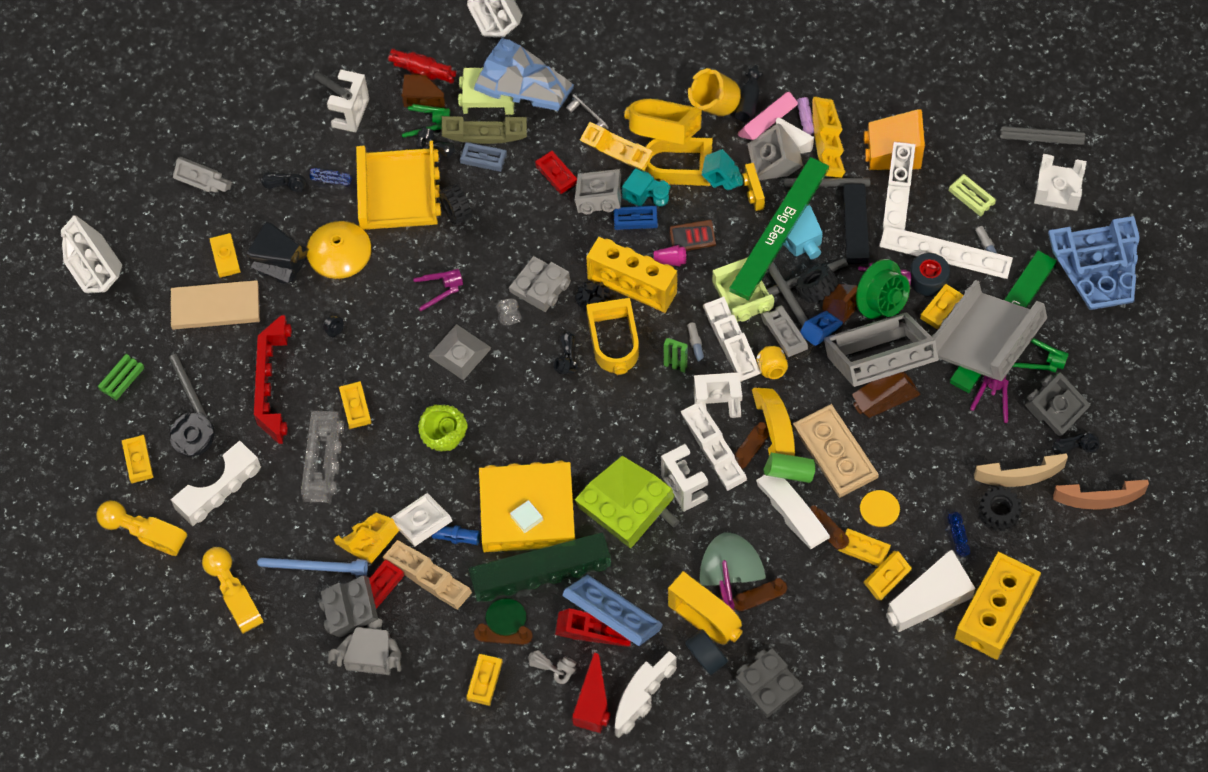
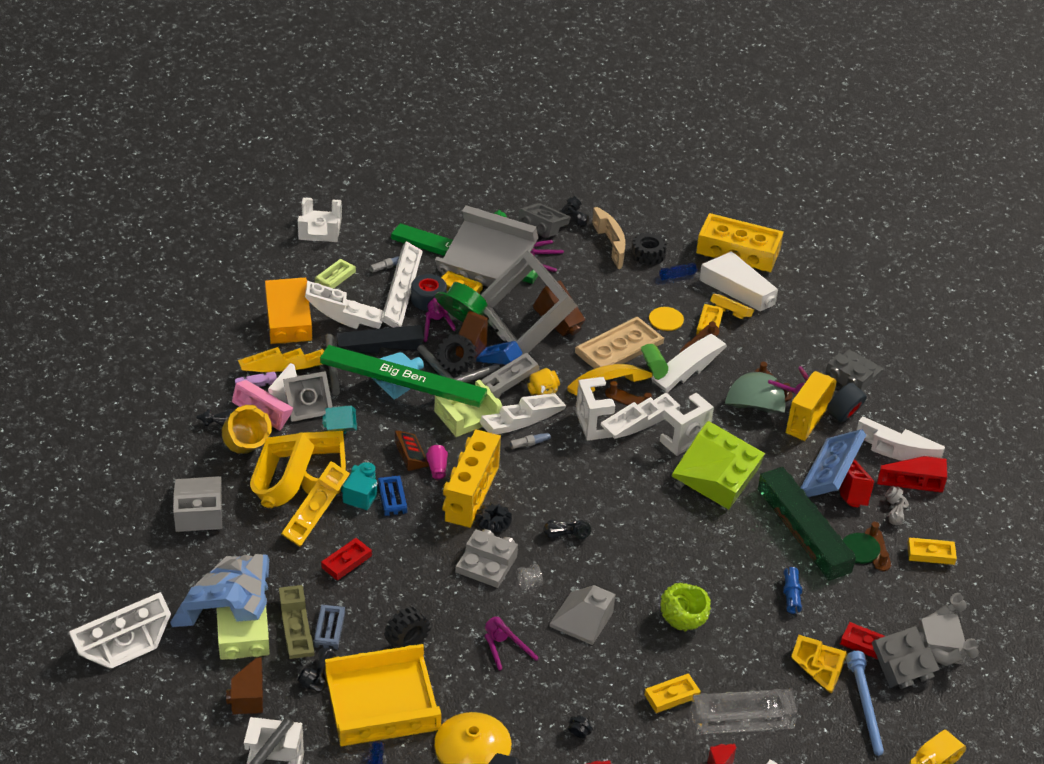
camera: 105 degrees left, 20 degrees down
(421, 519) = (788, 616): white tile -> none
(422, 65) = (215, 686): red pin -> none
(428, 575) = (842, 607): tan slope -> none
(437, 117) = (281, 670): green plant -> none
(508, 488) = (744, 535): yellow panel -> none
(526, 516) = (766, 525): light aqua tile -> none
(576, 102) = (277, 529): light grey piece -> none
(598, 191) = (370, 517): light grey plate -> none
(612, 310) = (534, 479): yellow window -> none
(641, 61) = (198, 504): none -> light grey slope
(674, 360) = (557, 439): bright green tile -> none
(755, 192) = (360, 402): yellow plate -> none
(1042, 135) = (265, 235): dark grey axle -> none
(1071, 495) = (615, 184): nougat slope -> none
(1100, 261) = (396, 196): medium blue wedge -> none

